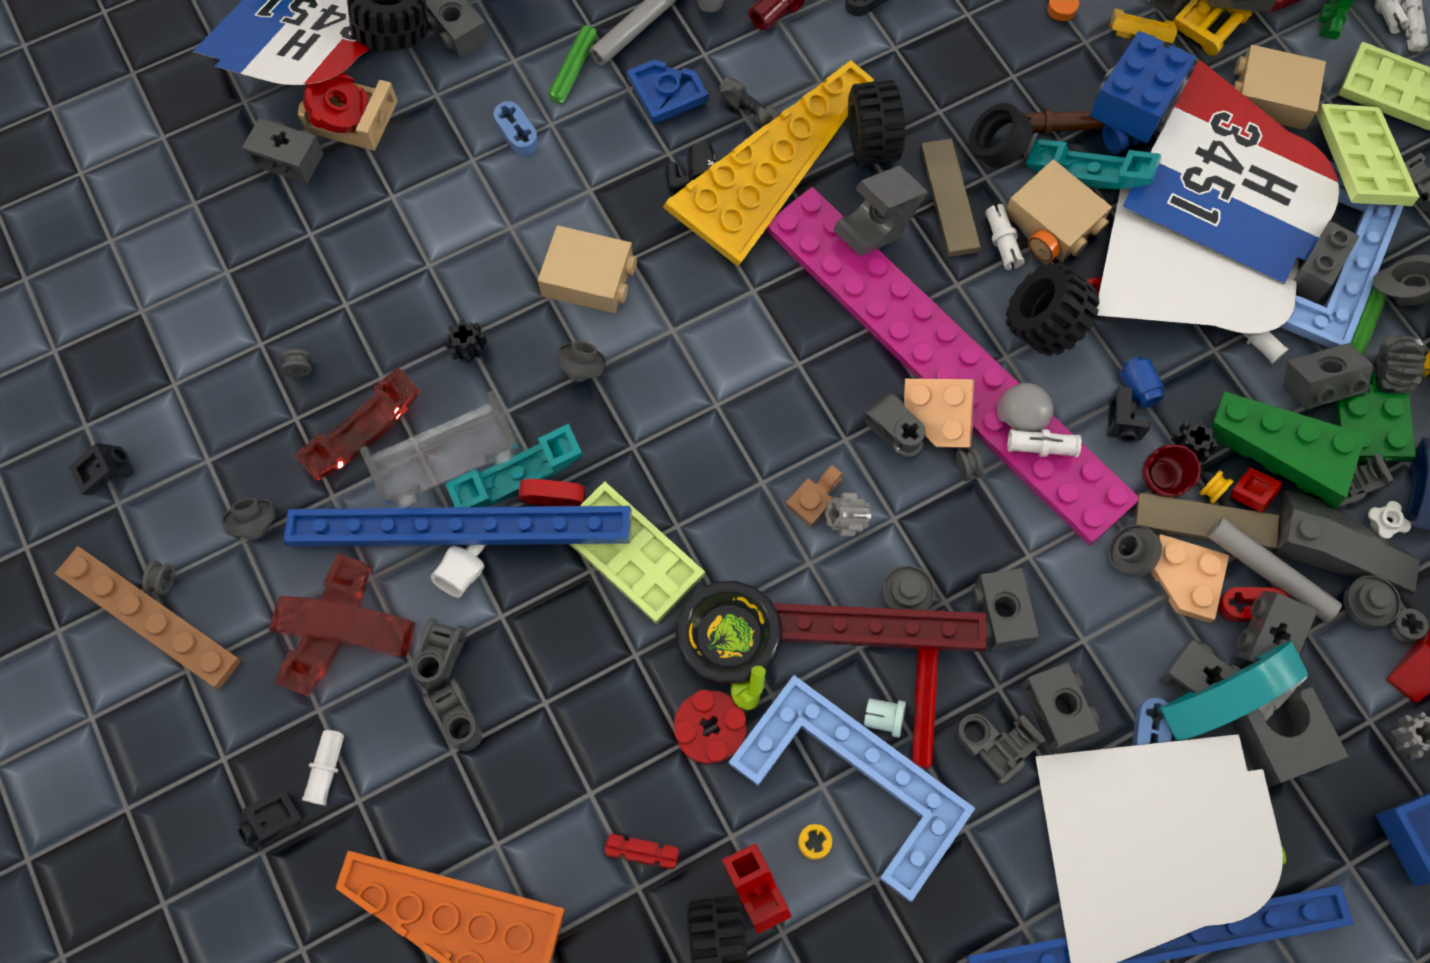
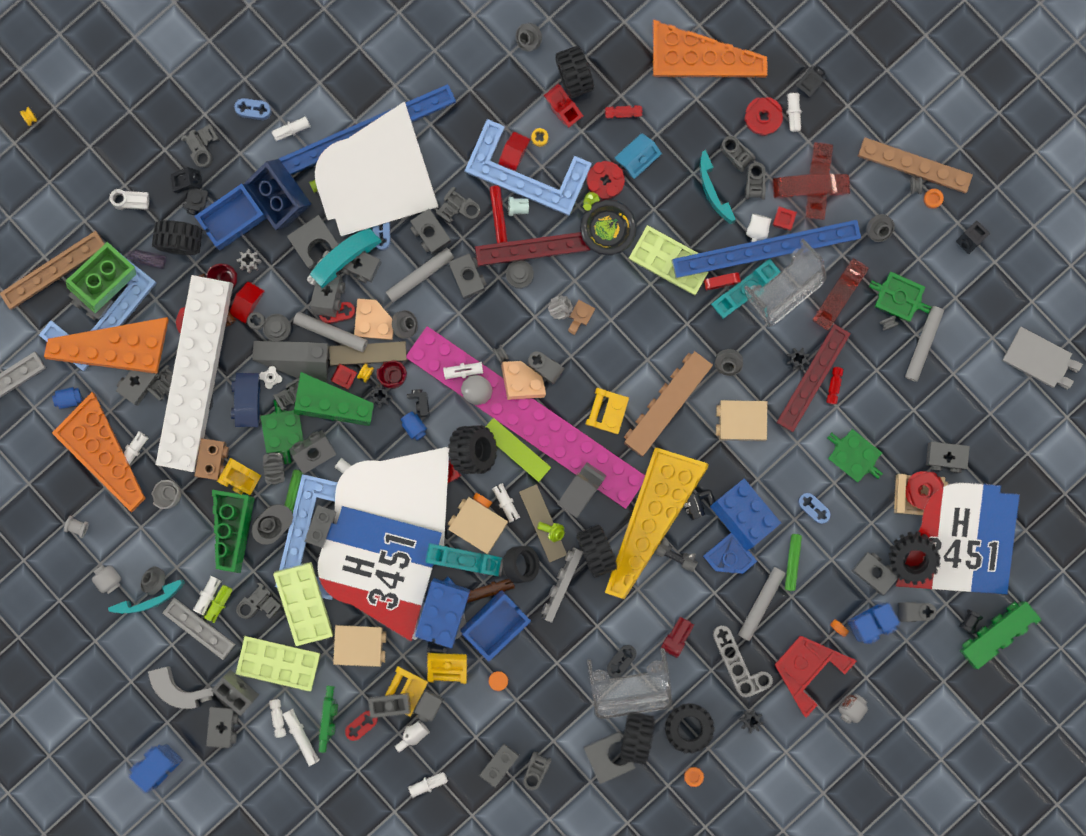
camera: 170 degrees right, 15 degrees up
(79, 258) = (1040, 359): none -> light grey tile
(139, 551) = (933, 198): none -> orange tile
(251, 321) = (924, 343): none -> light grey piece
(262, 401) = (899, 296): none -> green plate
(361, 769) = (774, 116): none -> red plate
(408, 576) = (784, 218): none -> red plate
(420, 292) = (835, 384): none -> red axle
(426, 186) = (855, 455): none -> green plate
(450, 307) = (813, 378): none -> dark red plate
(518, 701) = (723, 210): none -> teal slope
(625, 130) = (745, 514): none -> blue brick
(637, 759) = (638, 155): none -> dark azure panel
(701, 321) = (668, 403): none -> medium nougat brick
(796, 331) = (613, 414): none -> yellow plate
(870, 826) = (514, 151): none -> red slope
(934, 172) = (556, 531): none -> lime plate
(940, 99) = (557, 592): none -> light grey plate
(971, 311) = (518, 451): none -> lime tile
(1059, 61) = (495, 625): none -> blue piece
(1091, 635) = (419, 274): none -> light grey piece
(1360, 848) = (277, 194): none -> dark blue brick

